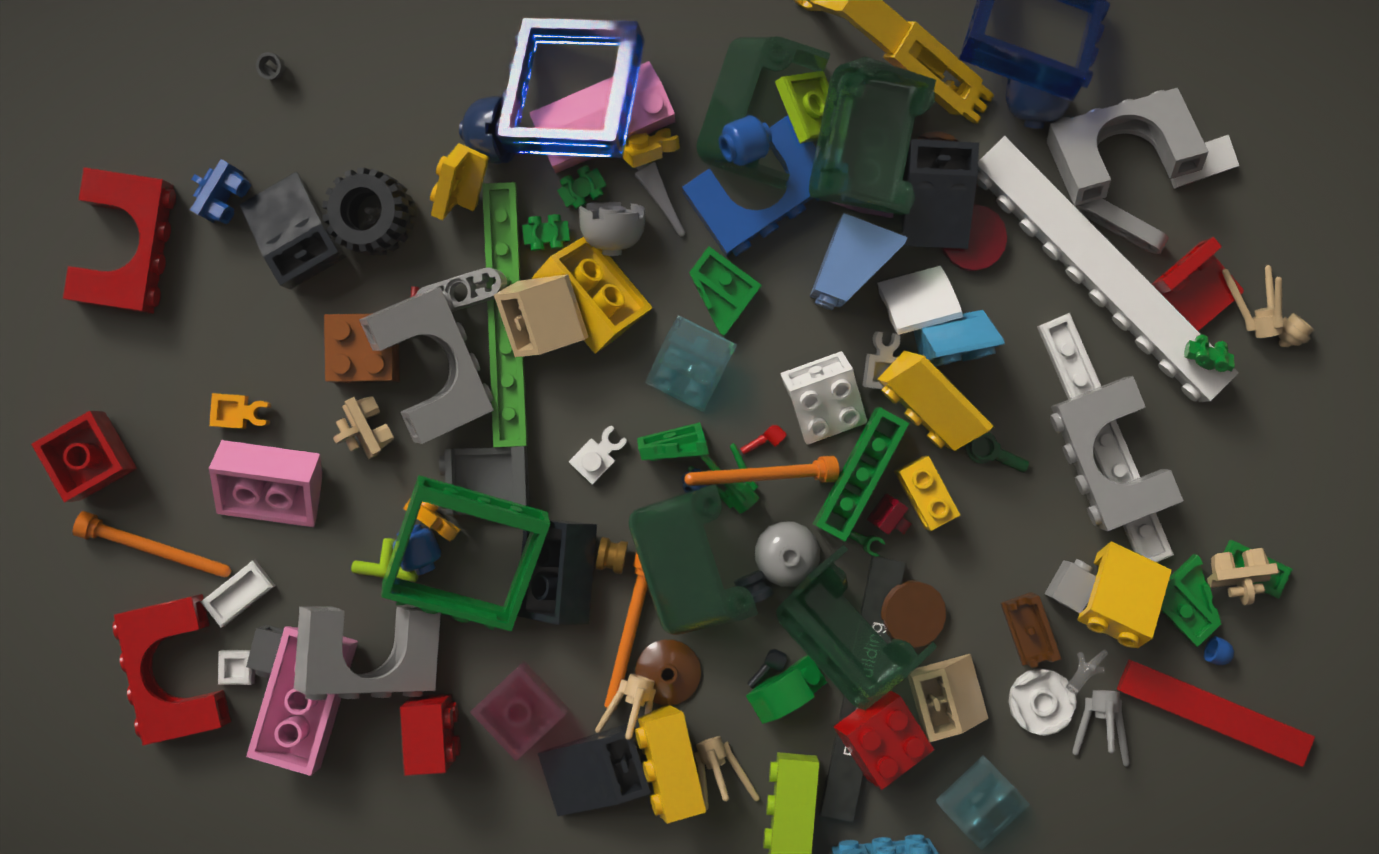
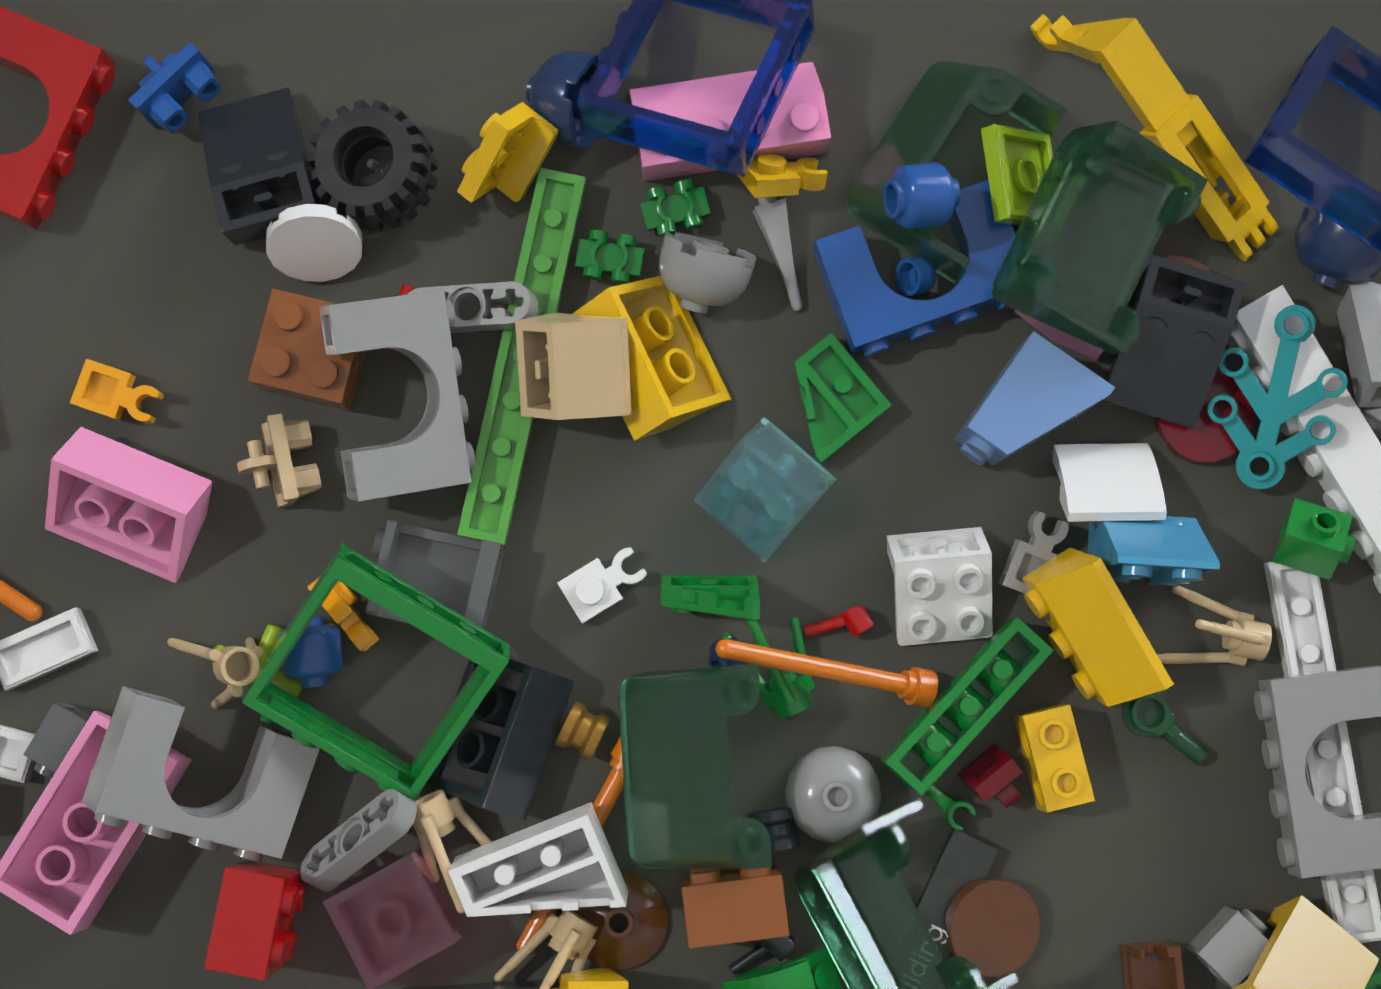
camera: 15 degrees right, 5 degrees down
(343, 275) = (314, 243): none -> white tile
(367, 573) = (231, 665): none -> tan plant
(482, 665) = (358, 840): none -> light grey beam
(528, 639) = (434, 821): none -> tan plant
(609, 651) = (541, 868): none -> white wedge
(739, 645) = (734, 906): none -> dark orange brick
(756, 192) = (915, 276): none -> blue hinge
(1018, 220) = (1275, 407): none -> teal plant
(1034, 380) = (1241, 636): none -> tan plant
(1066, 303) = (1314, 539): none -> green brick

